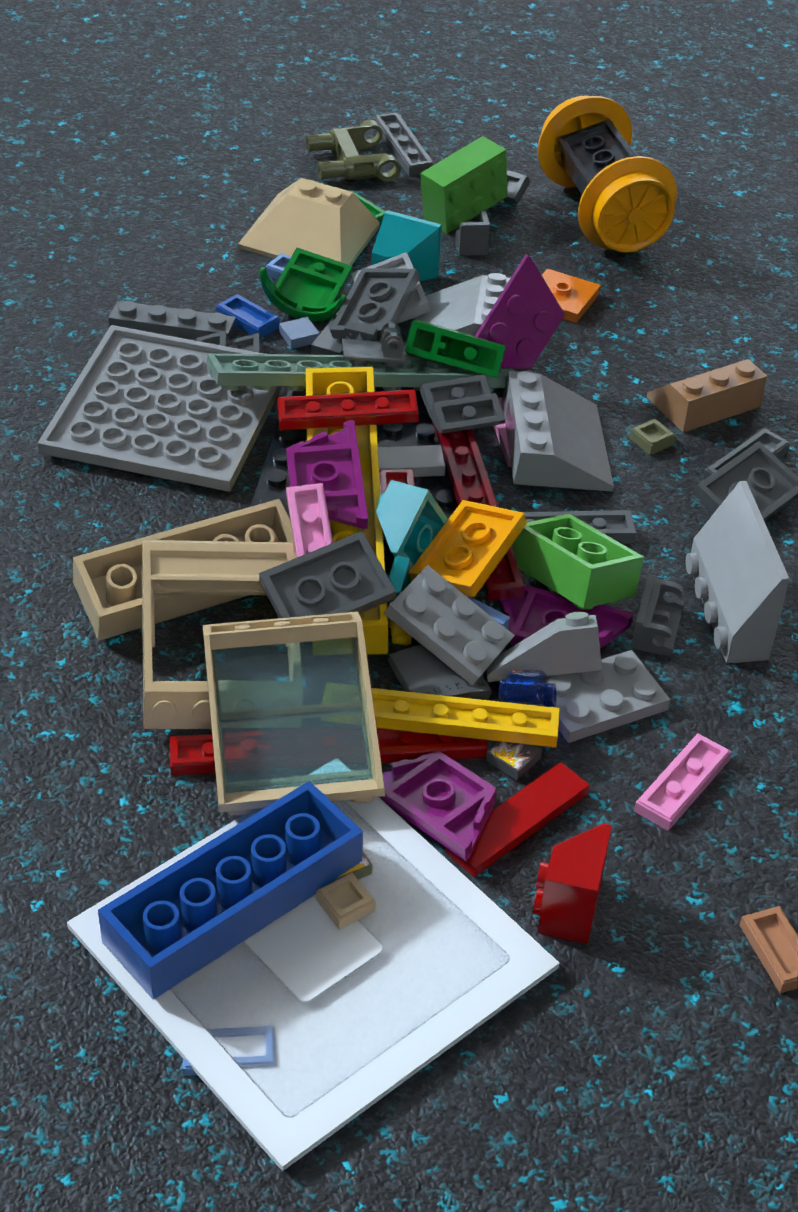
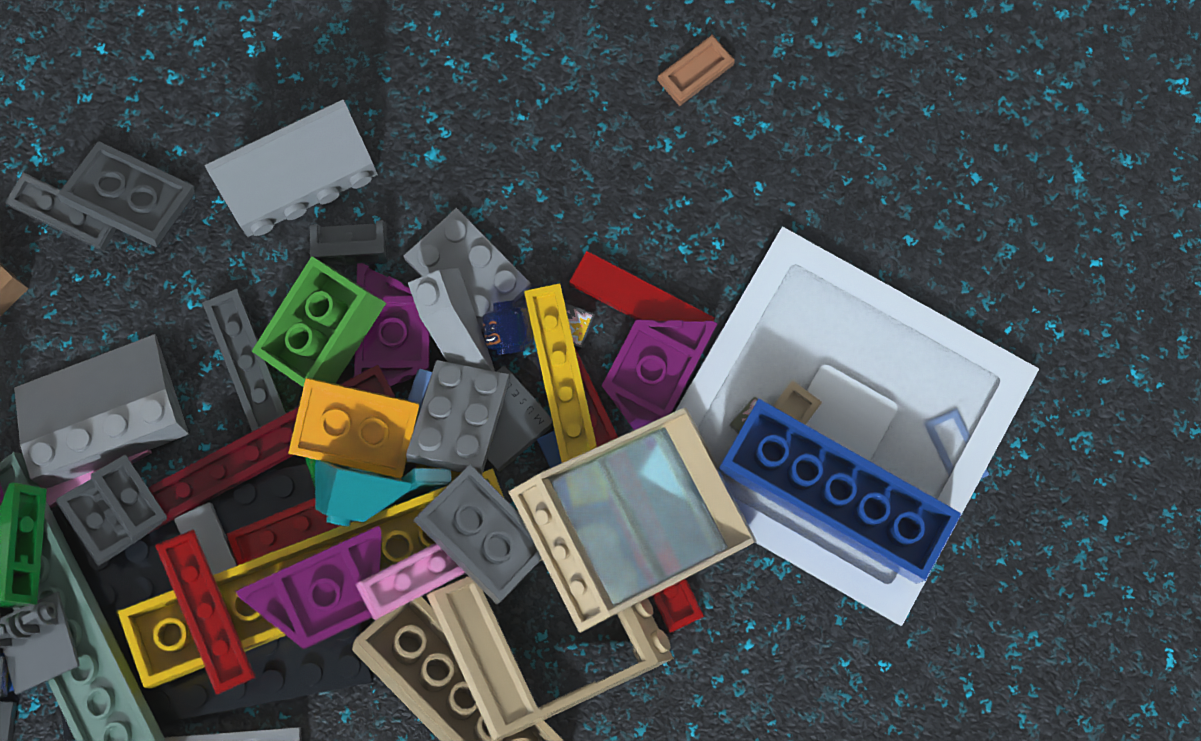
camera: 110 degrees left, 35 degrees up
(572, 885) = (718, 224): red slope -> none
(652, 436) = (53, 315): olive tile -> none
(682, 781) = (545, 178): bright pink tile -> none

